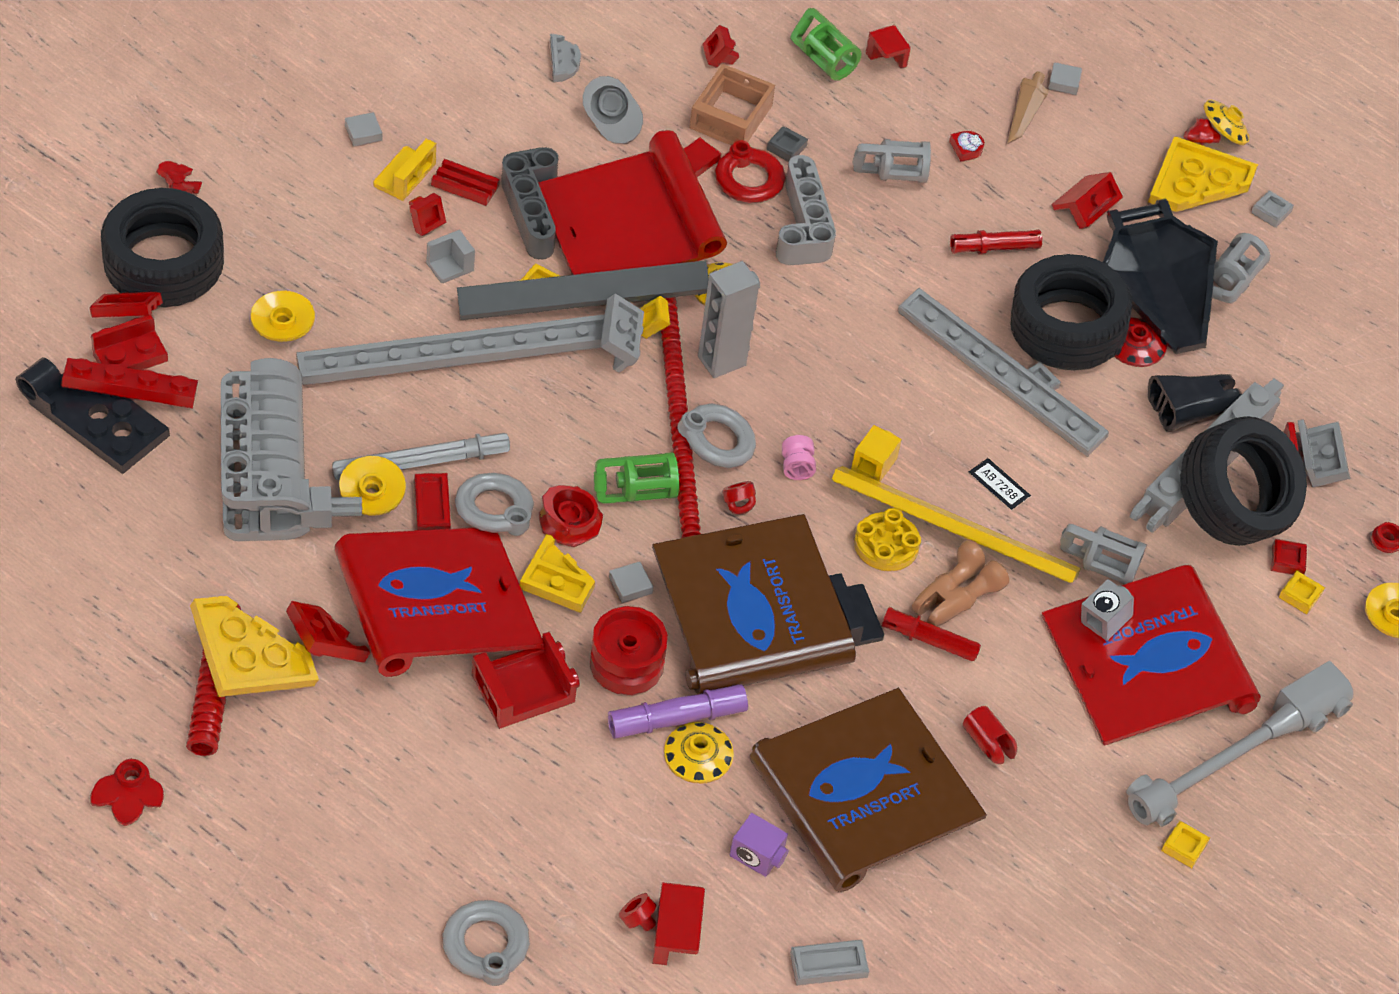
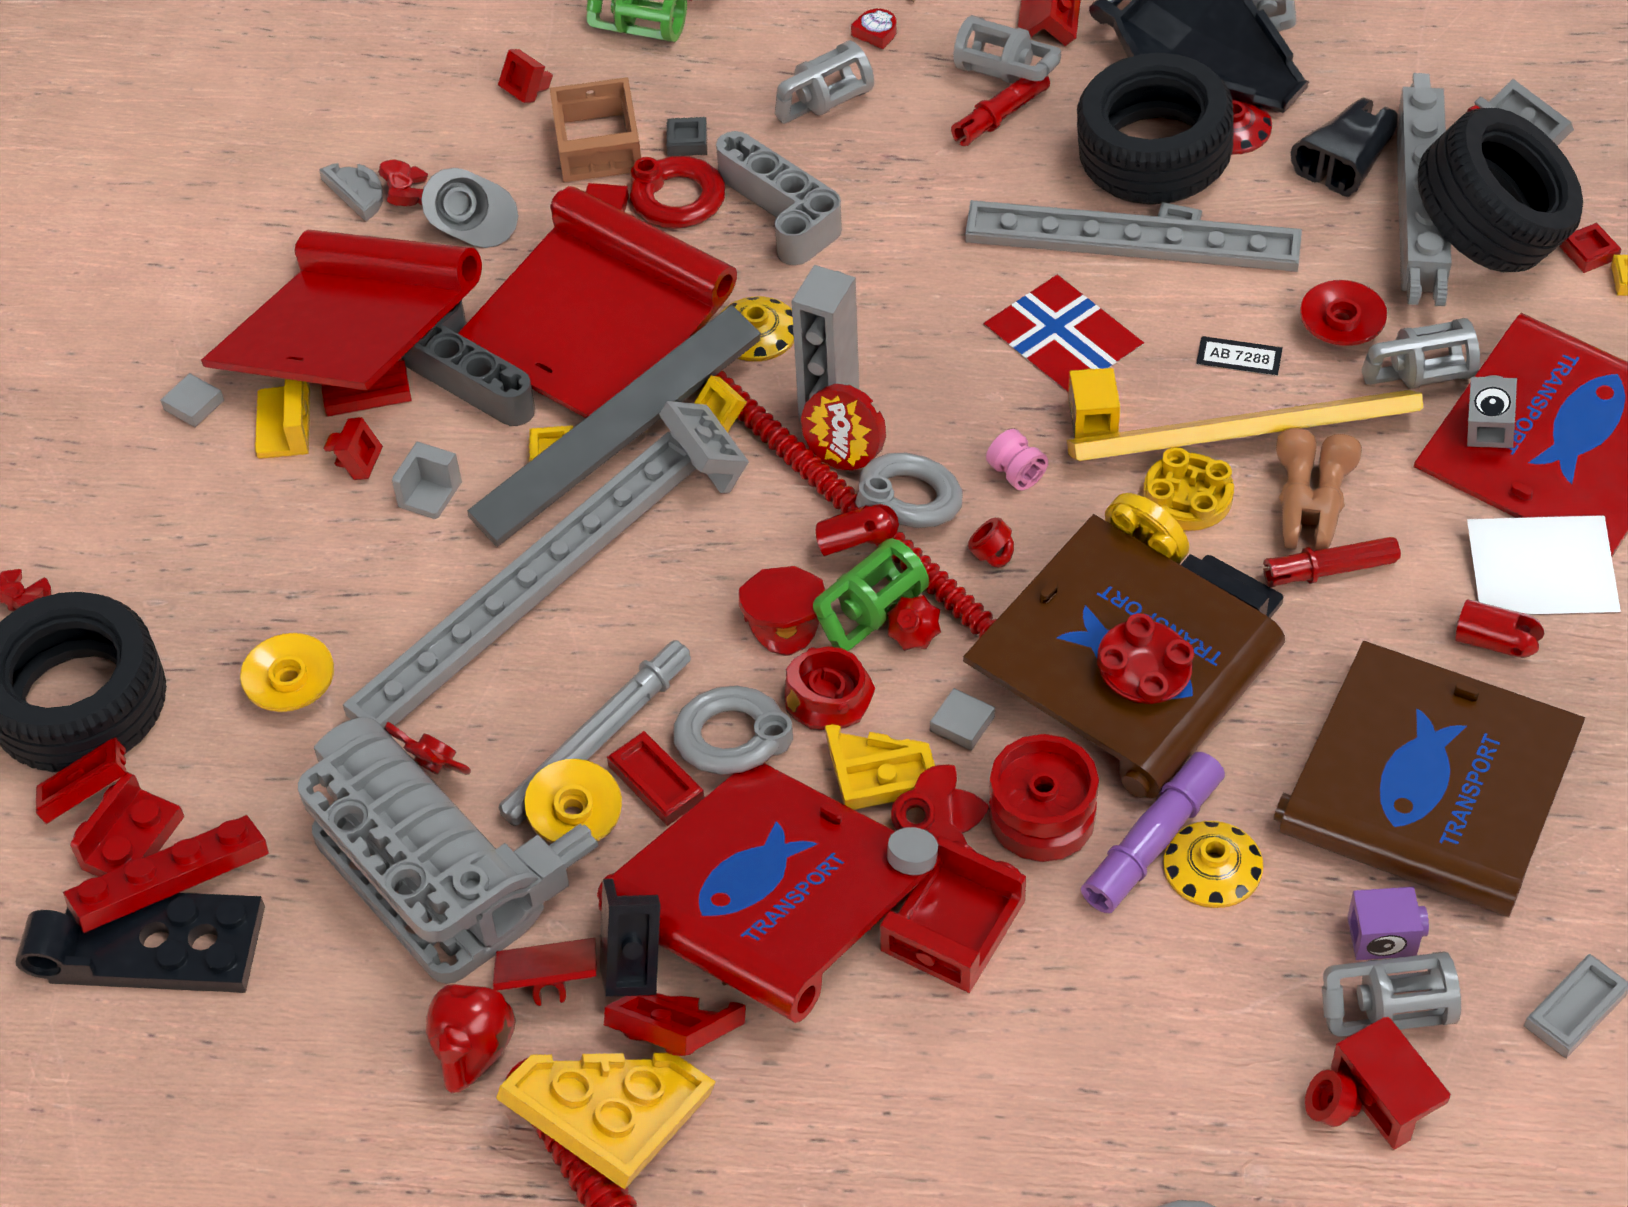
camera: 25 degrees left, 0 degrees up
(210, 567) = (468, 1032): none -> red piece
(281, 560) = (545, 966): none -> red piece
(319, 408) = (429, 752): none -> red plate
(330, 575) = (629, 942): none -> black panel
(487, 129) = (349, 309): none -> red door
(527, 629) = (912, 851): none -> light grey tile
(573, 621) = (946, 809): none -> red plate
(579, 450) = (781, 608): none -> red hat
(592, 65) = (399, 182): none -> red piece
(651, 510) = (913, 622): none -> red piece
(663, 436) = (856, 527): none -> red piece
(708, 373) = (843, 427): none -> tile
(717, 873) = (1378, 990): none -> light grey piece
(750, 612) = (1145, 660): none -> red dish
(828, 542) = (1148, 524): none -> yellow tile
(906, 402) = (1062, 331): none -> sticker
(1031, 212) = (1015, 56): none -> light grey piece
(1059, 720) = (1544, 564): none -> white sticker
(1086, 487) = (1343, 312): none -> red dish

